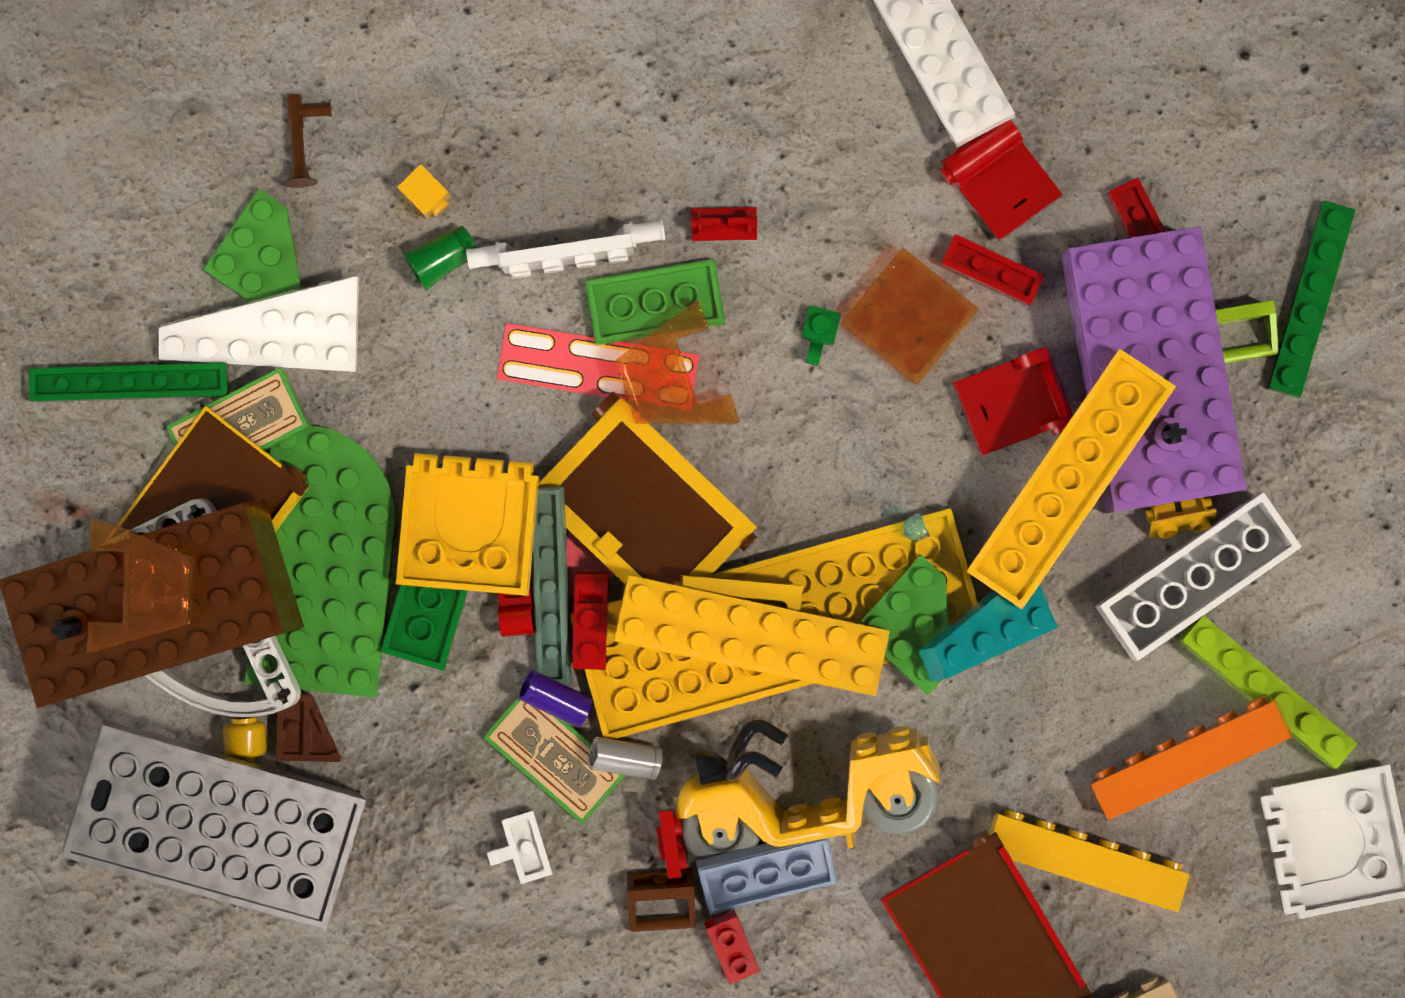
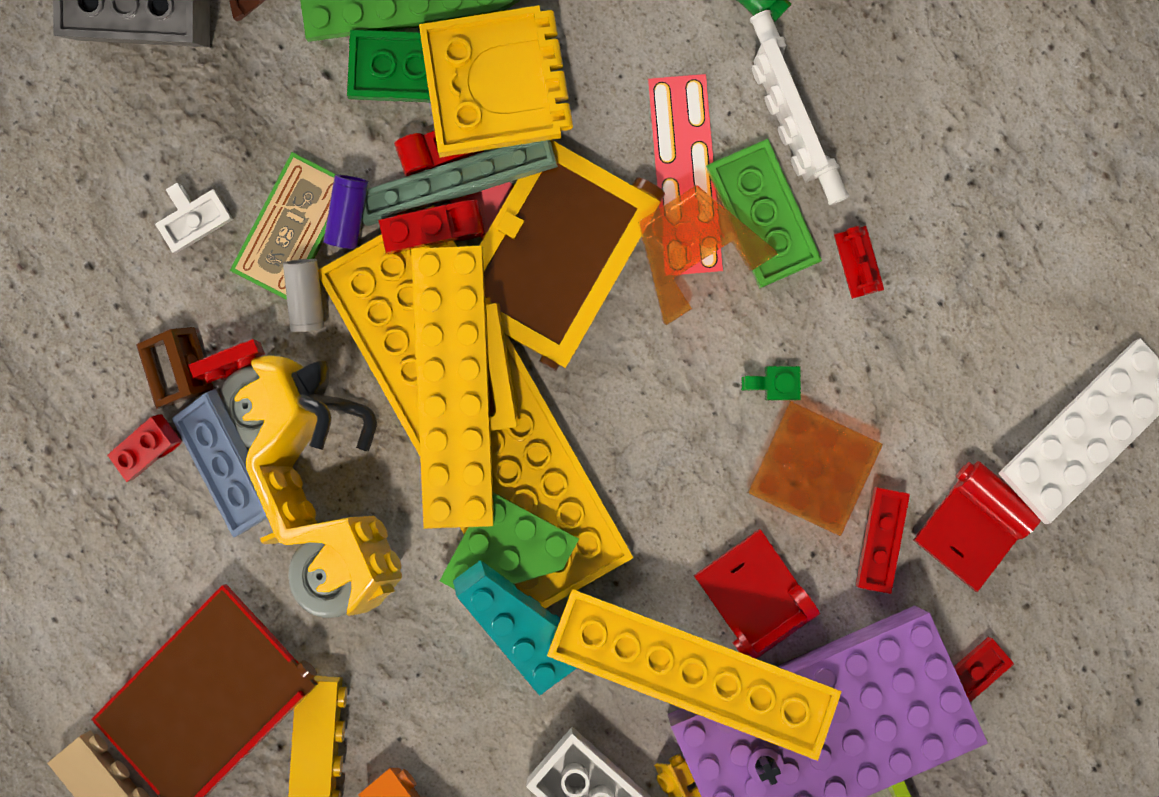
camera: 70 degrees right, 0 degrees up
(915, 528) = (603, 527): clear light blue hinge -> none

